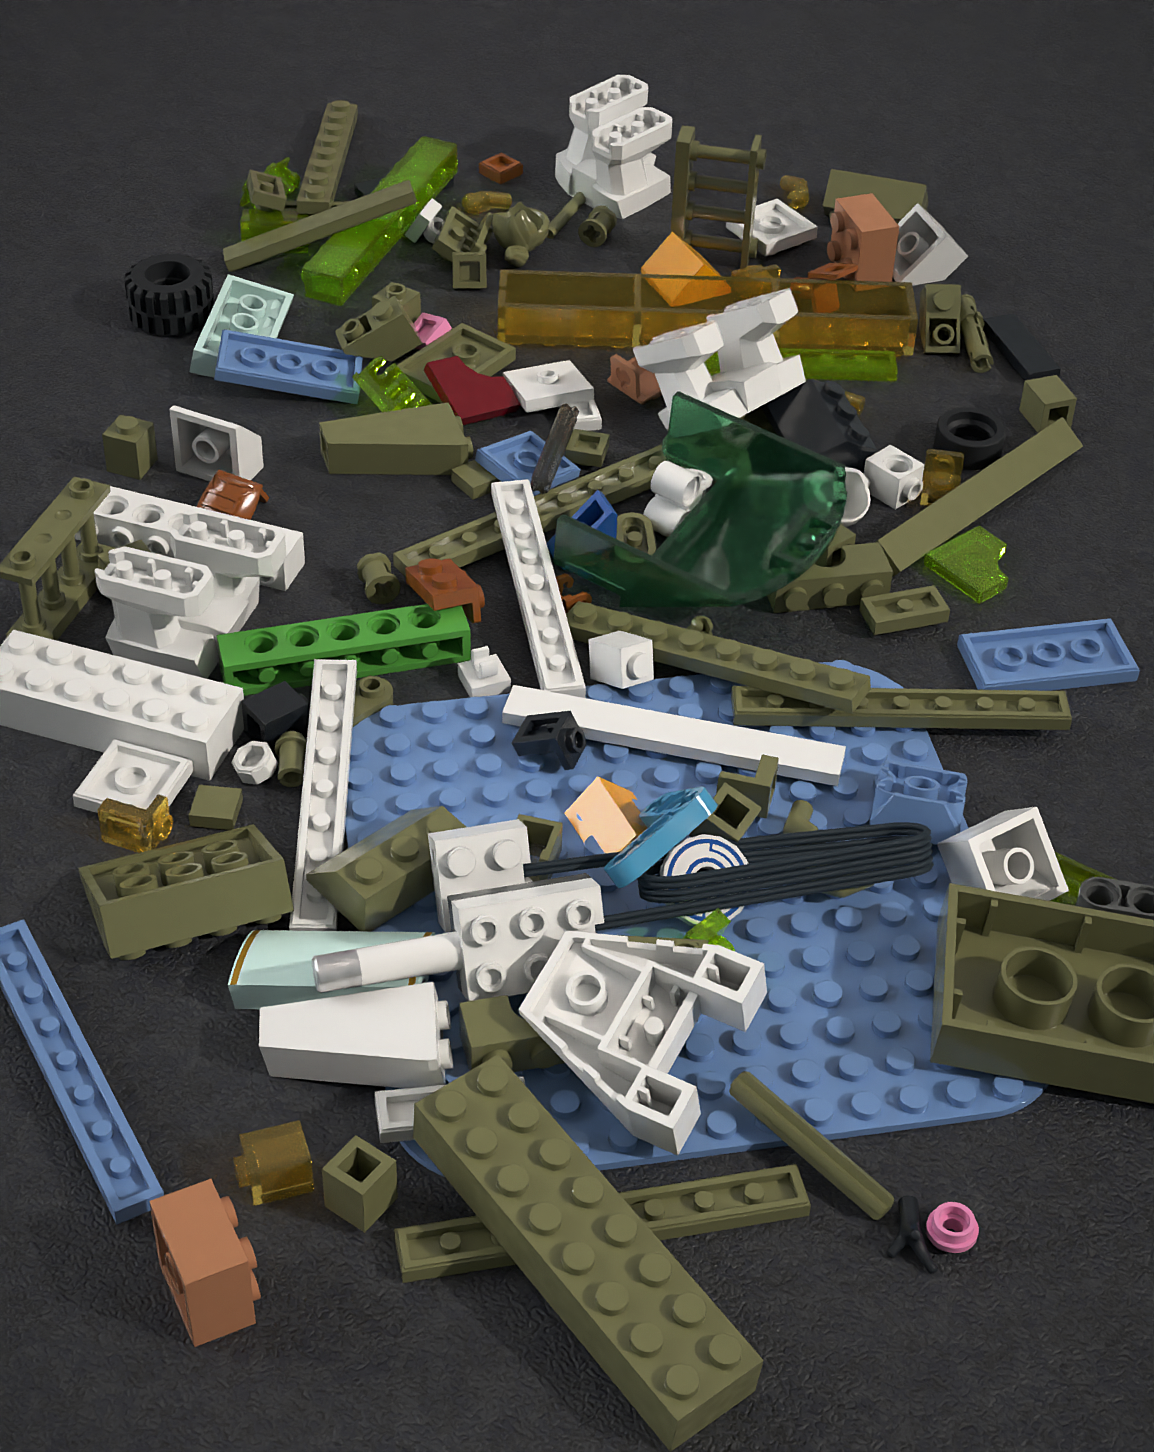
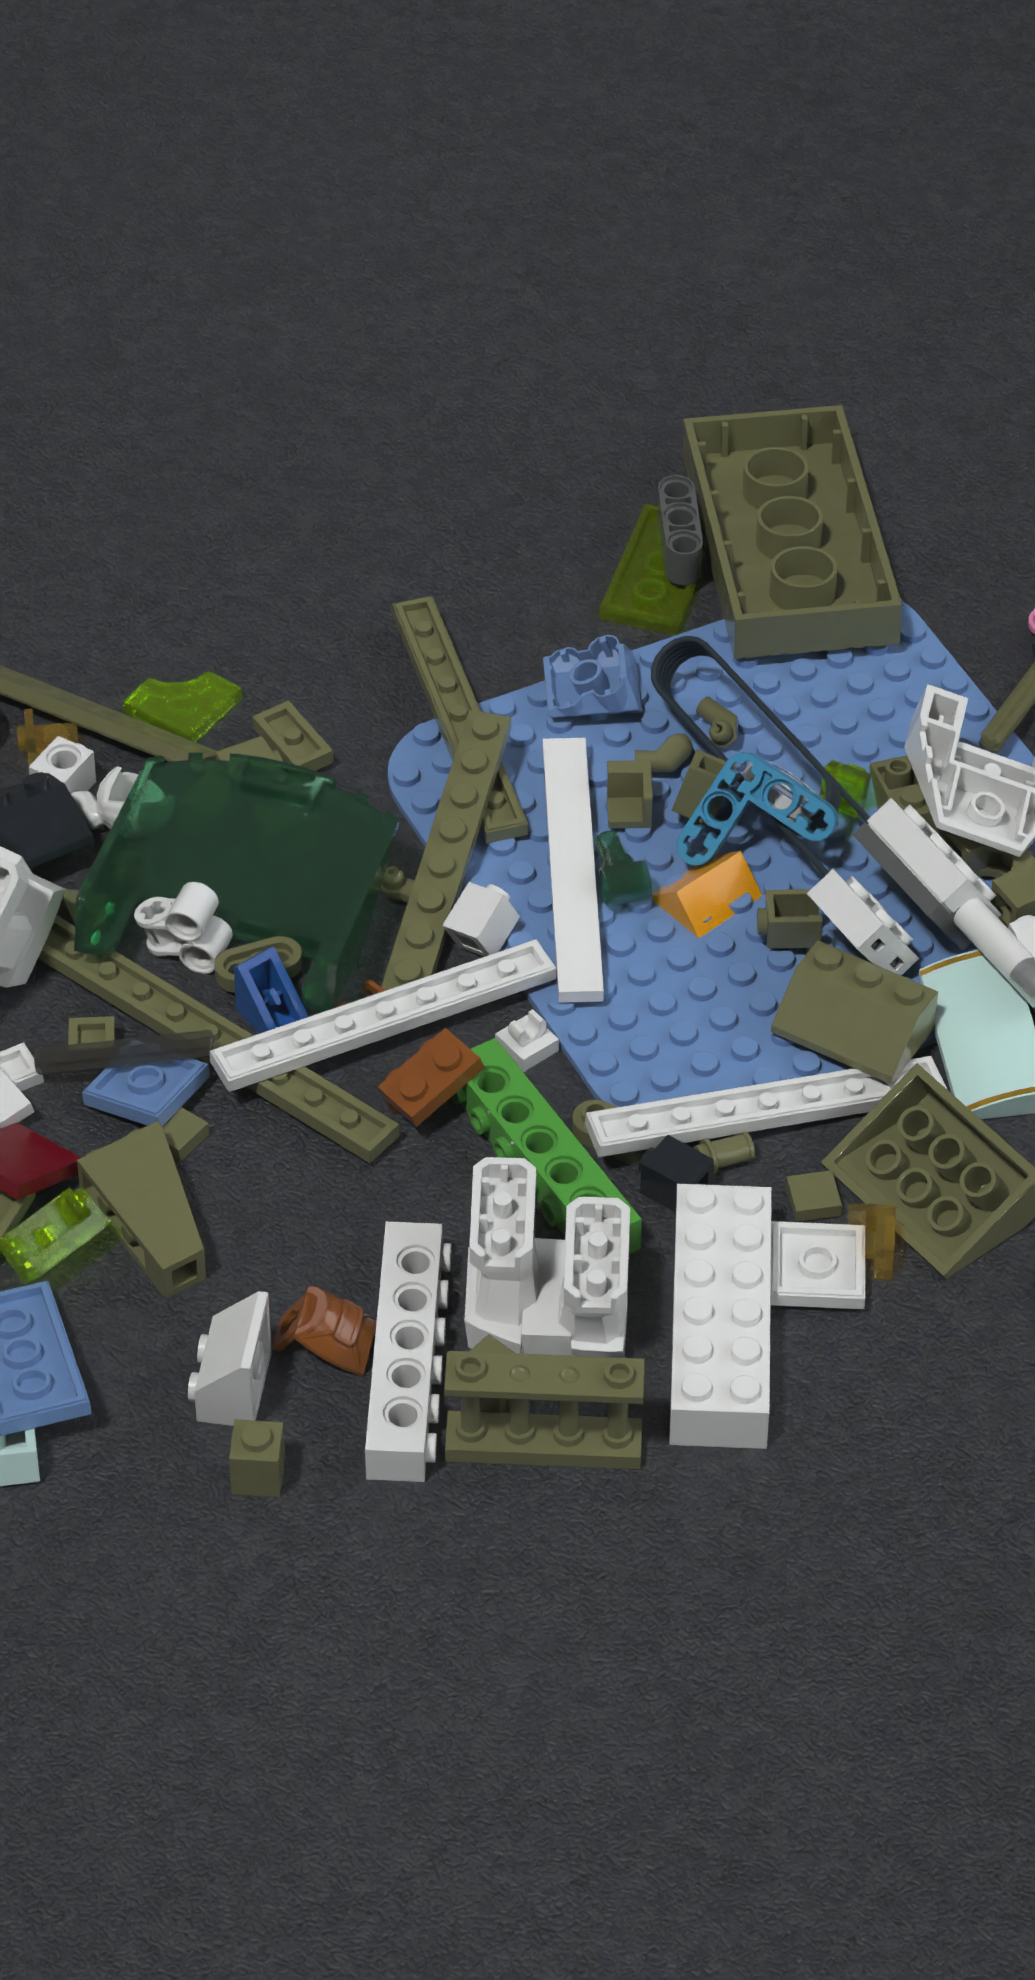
camera: 105 degrees left, 5 degrees up
(254, 762) = (744, 1171): white tile -> none
(380, 583) = (410, 1159): olive bush -> none
(551, 733) = (626, 946): black bracket -> none
(637, 756) = (620, 876): none -> clear green pin
(1006, 856) = (651, 615): white slope -> none
(1048, 657) = (317, 638): medium blue tile -> none

